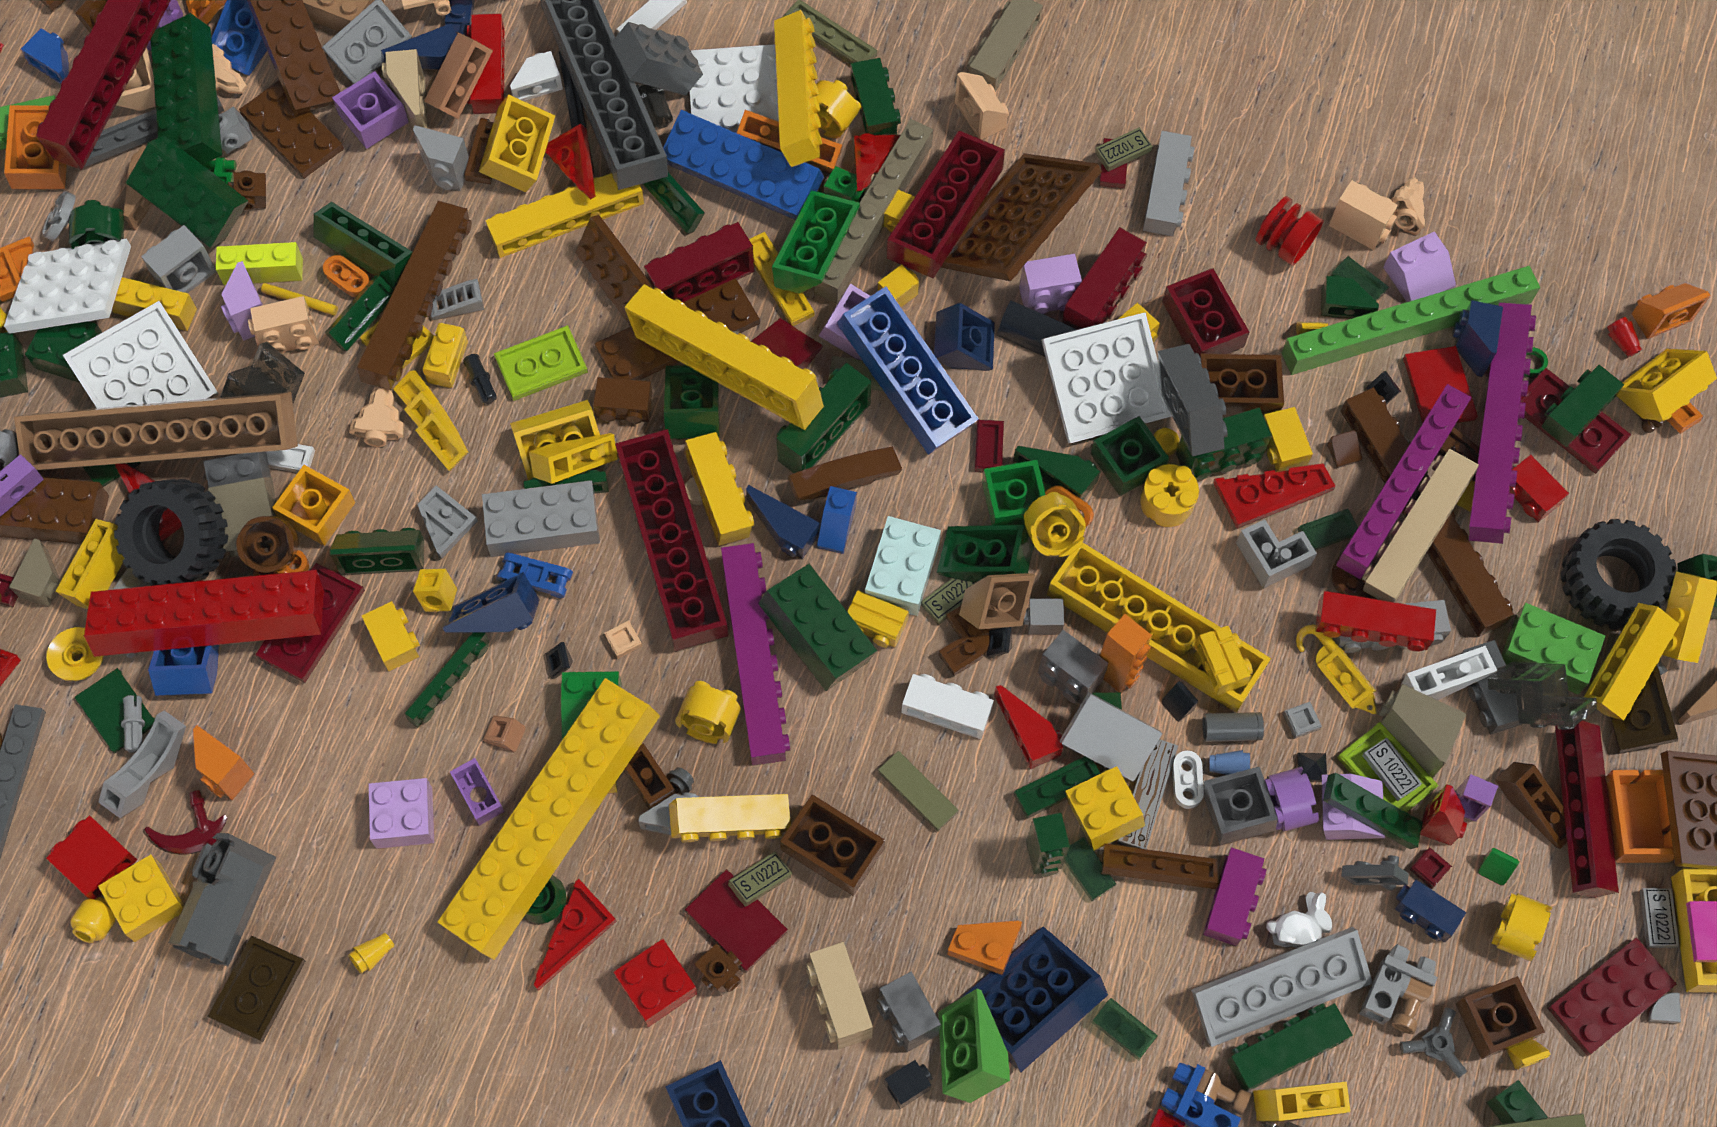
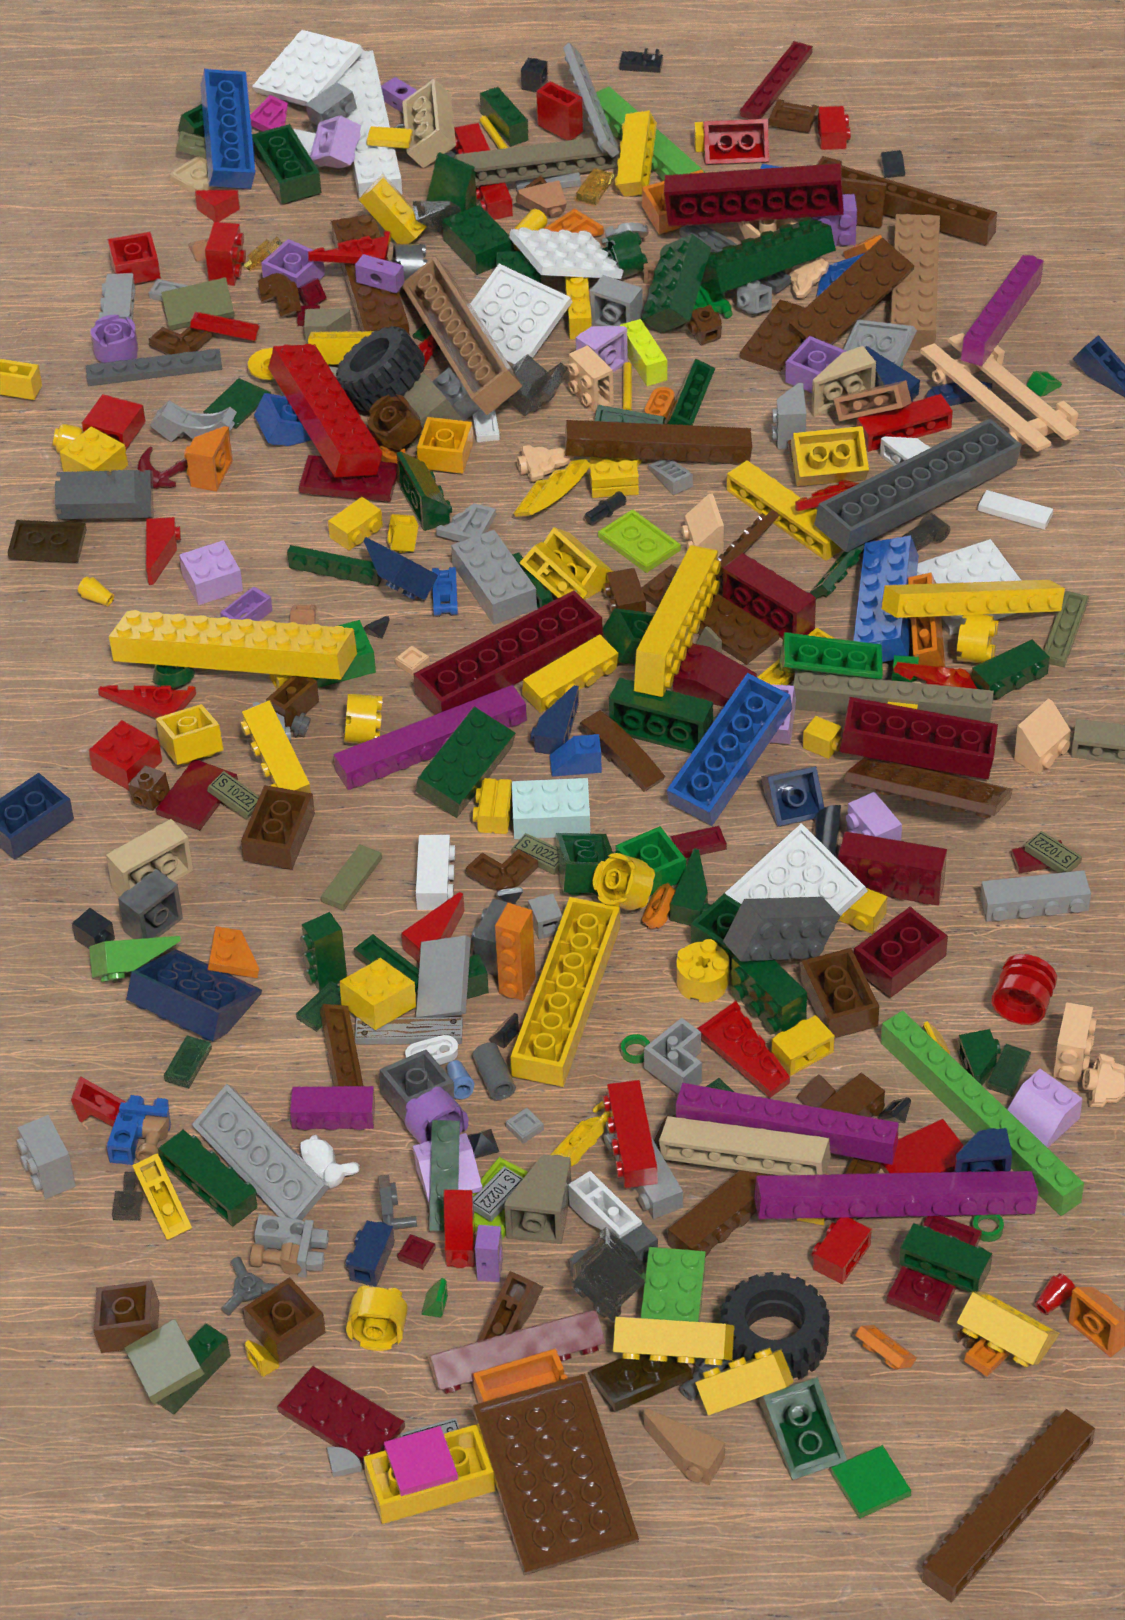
camera: 75 degrees right, 20 degrees down
(132, 723) = (238, 405): light grey axle -> none
(322, 857) = (160, 545): none -> red slope
(570, 293) = (704, 526): none -> light nougat slope
(656, 58) = (956, 509): dark grey brick -> none
(659, 902) = (189, 734): none -> yellow brick
(997, 601) = (535, 865): medium nougat slope -> none
(1223, 659) = (540, 1024): yellow brick -> none
(1241, 578) = (633, 1039): none -> green piece
(1651, 490) = (878, 1341): none -> orange plate

